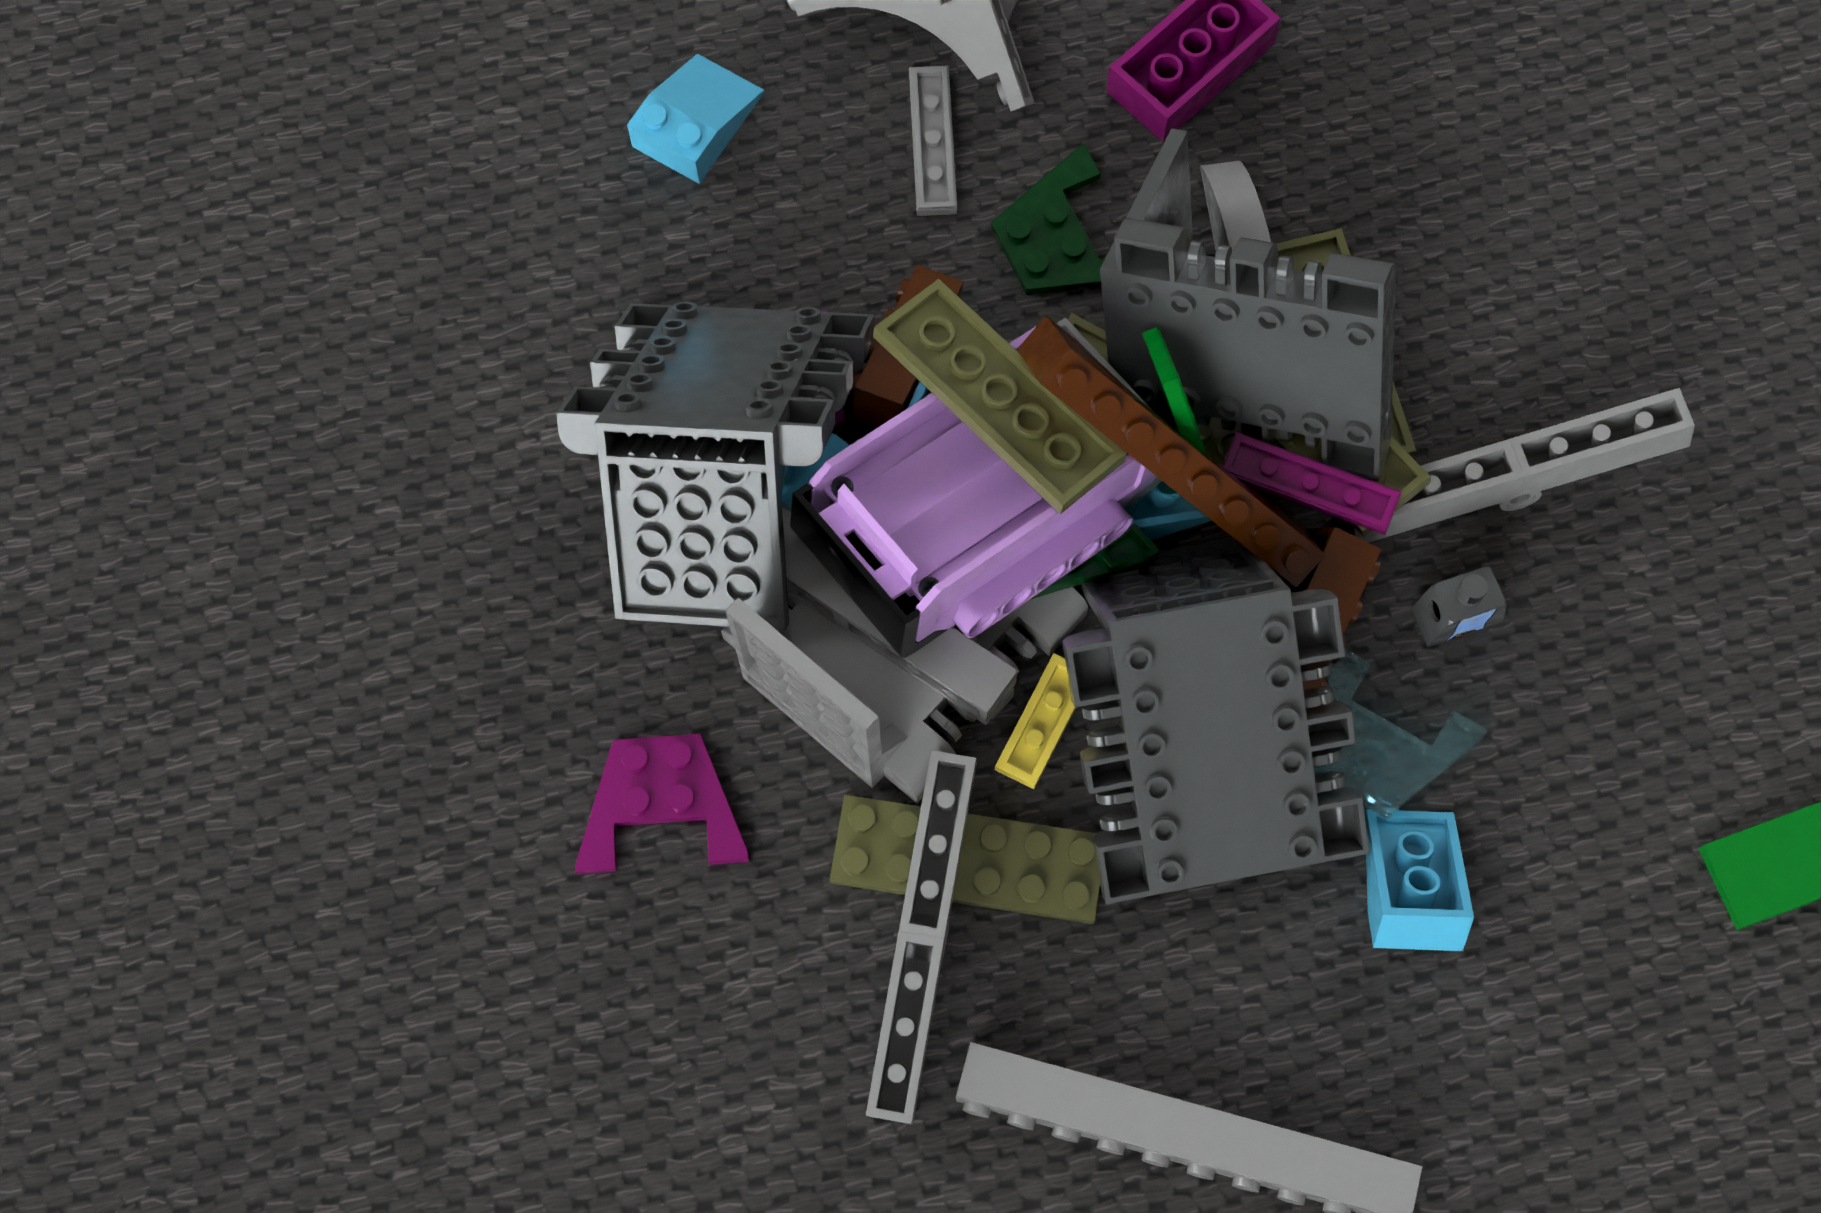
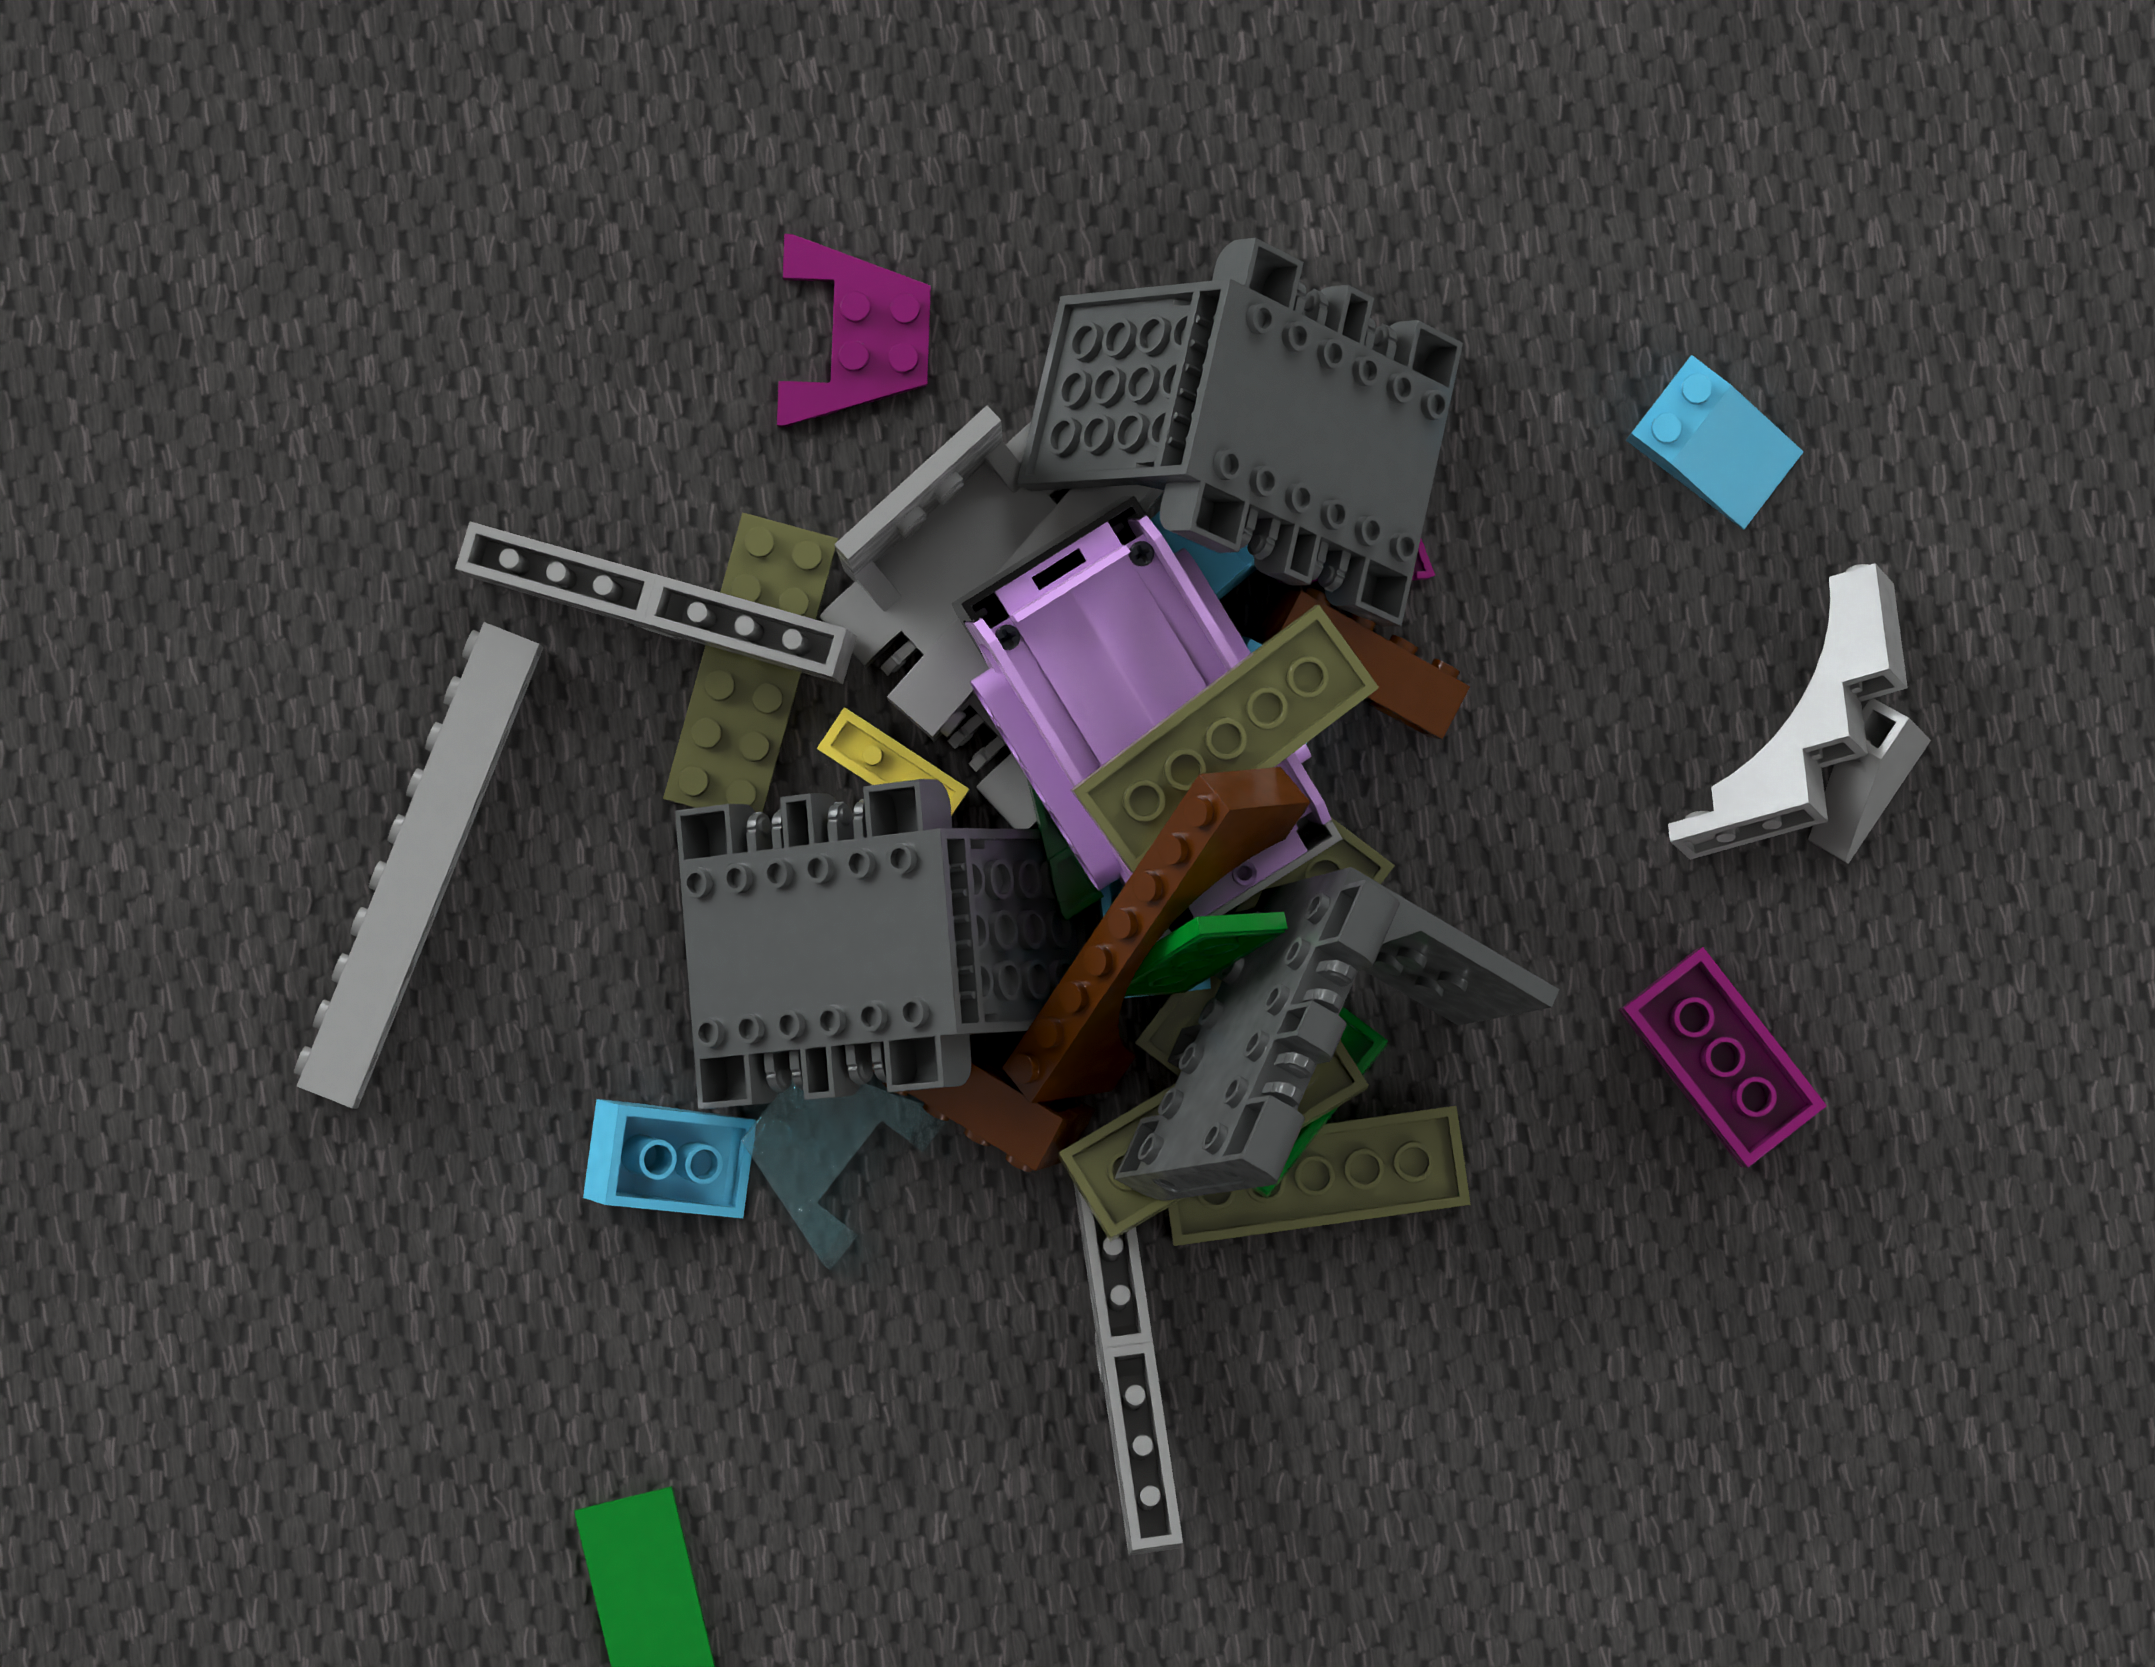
camera: 90 degrees right, 15 degrees up
(932, 140) = (1651, 728): light grey tile -> none
(1045, 235) = (1507, 849): dark green wing -> none
(1232, 204) = (1484, 1077): light grey slope -> none
(1311, 483) = (1120, 1100): magenta tile -> none
(1464, 606) = (974, 1264): dark grey torso -> none

